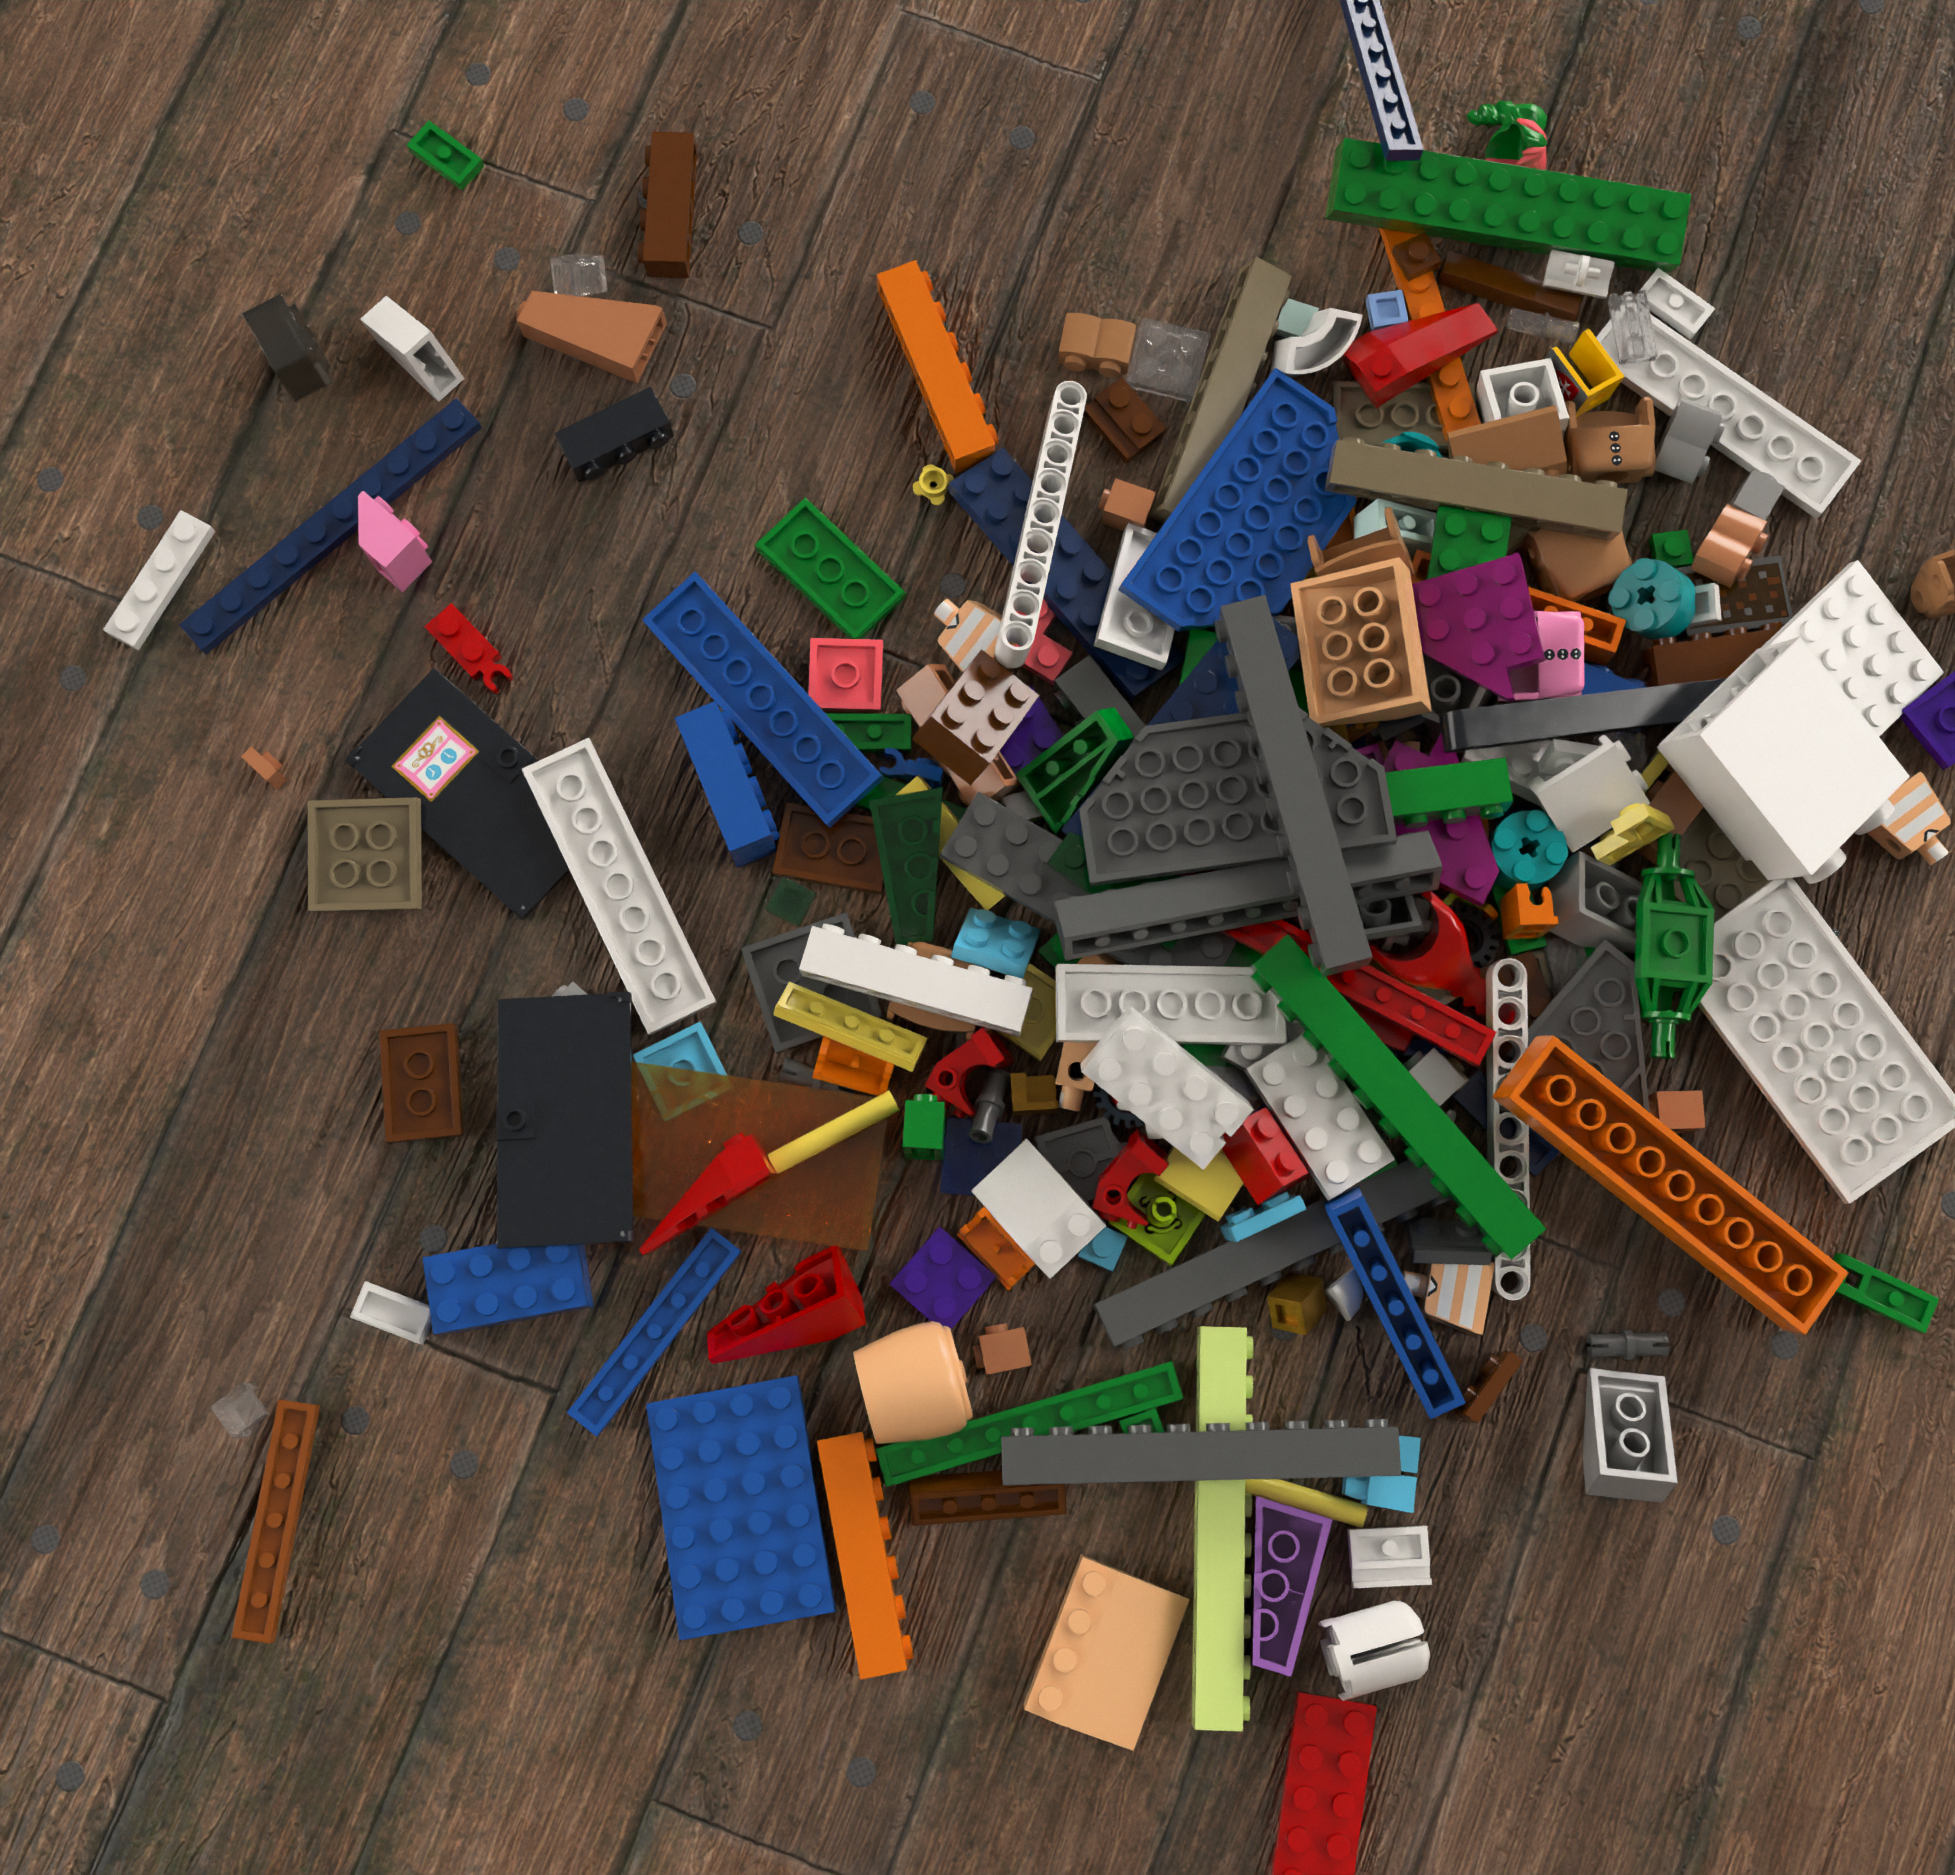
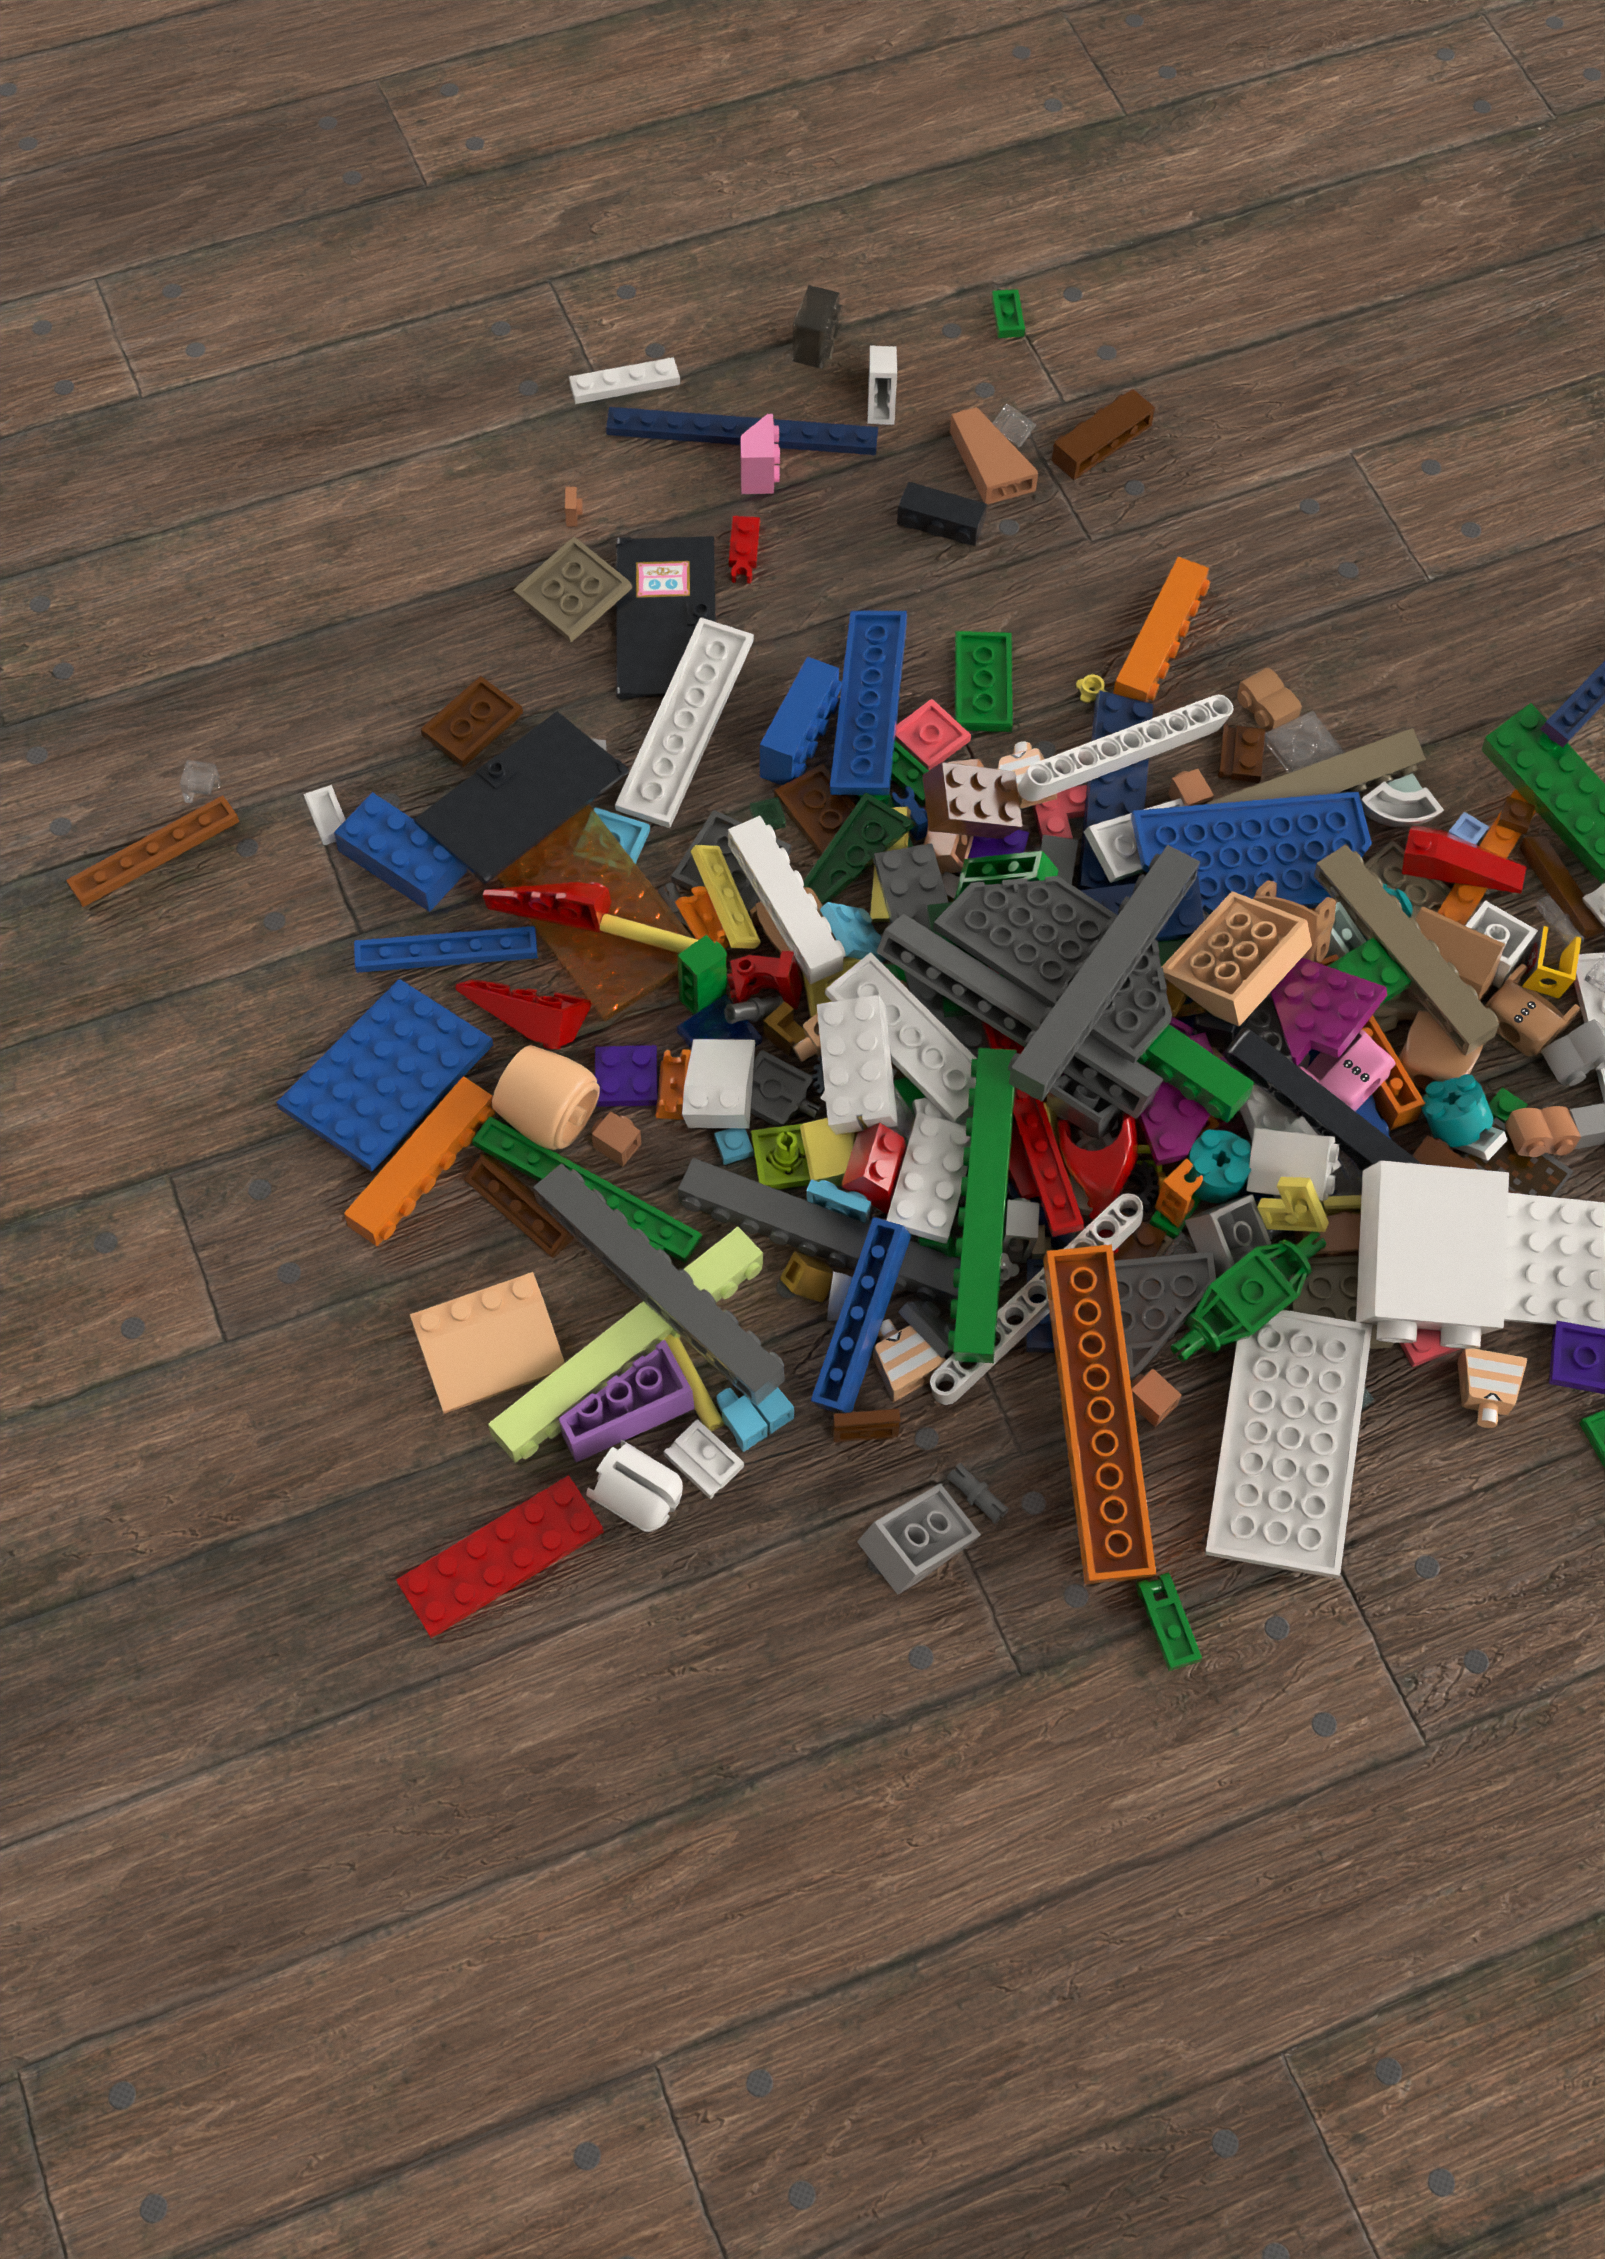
camera: 45 degrees right, 15 degrees down
(1136, 1158) = (786, 1100): red tile -> none

